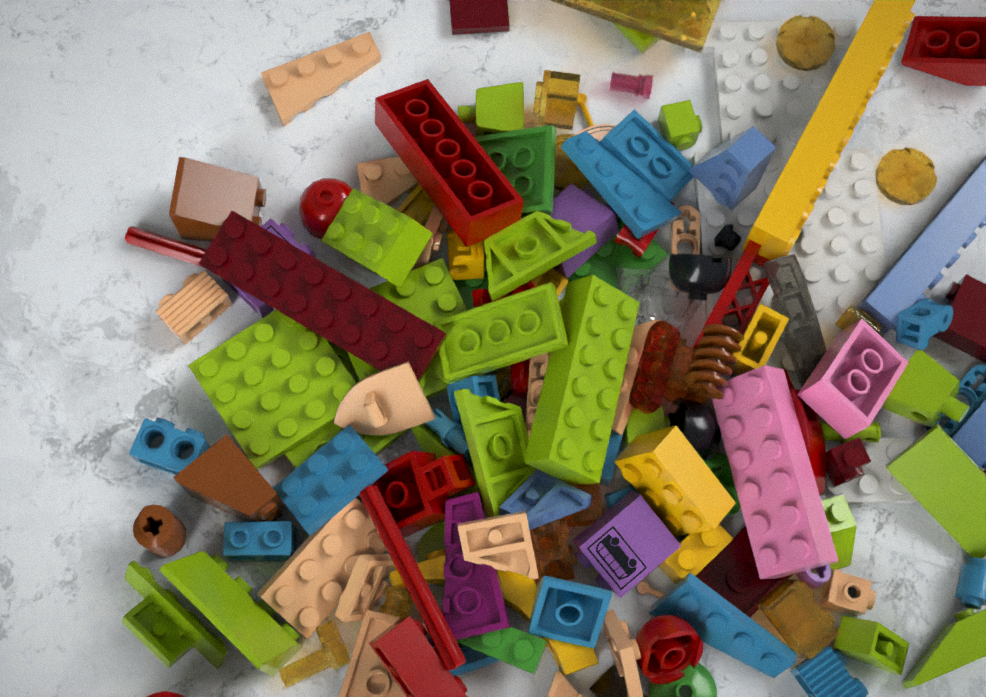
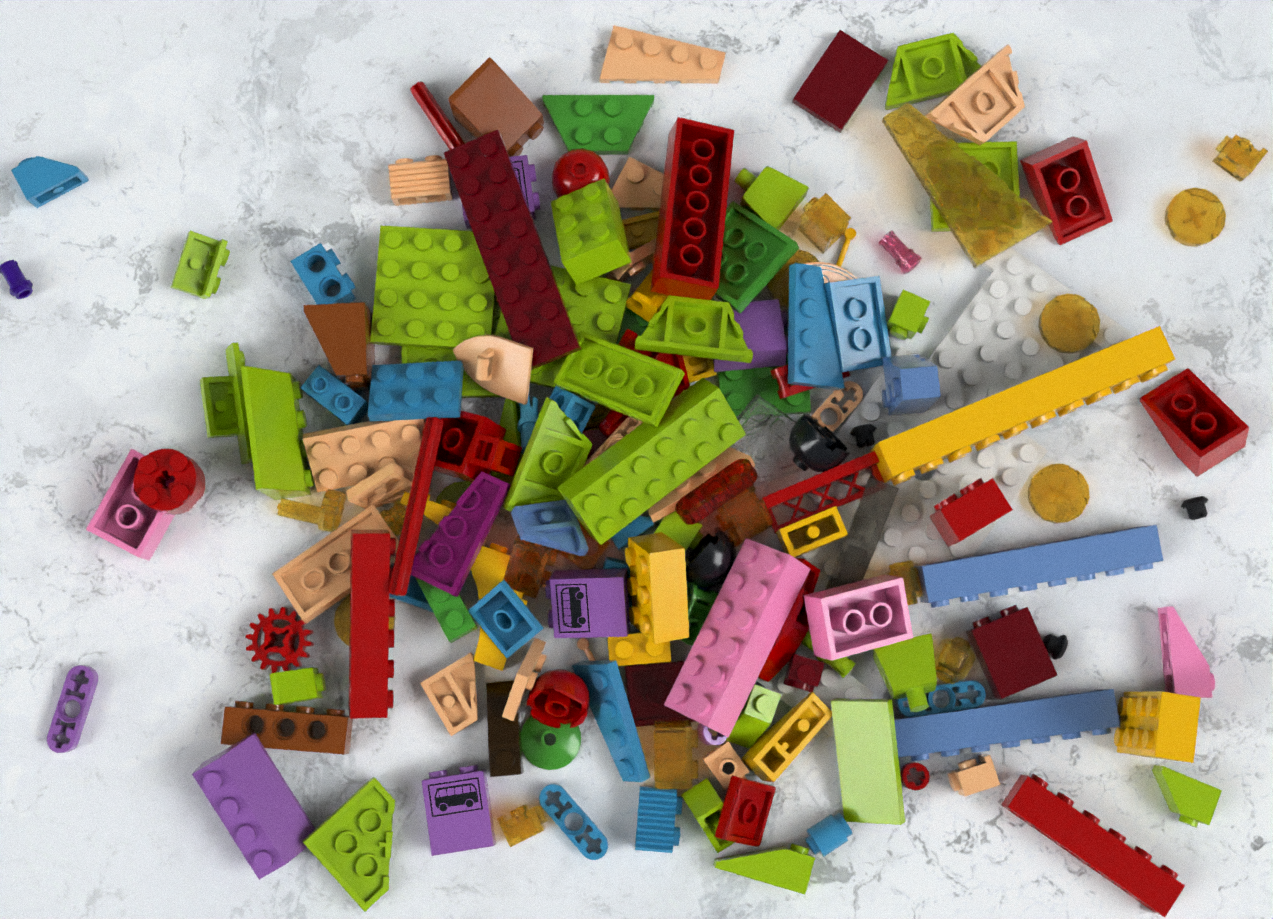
camera: 40 degrees right, 10 degrees up
(46, 520) = (200, 265): none -> lime bracket
(159, 531) = (270, 336): dark orange piece -> none
(306, 155) = (598, 121): none -> bright green wing
(500, 542) = (492, 532): light nougat wing -> none
(711, 360) = (759, 521): dark orange piece -> none
(863, 231) = (964, 516): none -> red brick
(877, 536) = (787, 738): none -> yellow slope
(898, 618) = (745, 811): none -> red tile
(921, 322) = (954, 616): dark azure leg -> none
(950, 356) = (953, 660): none -> clear yellow head

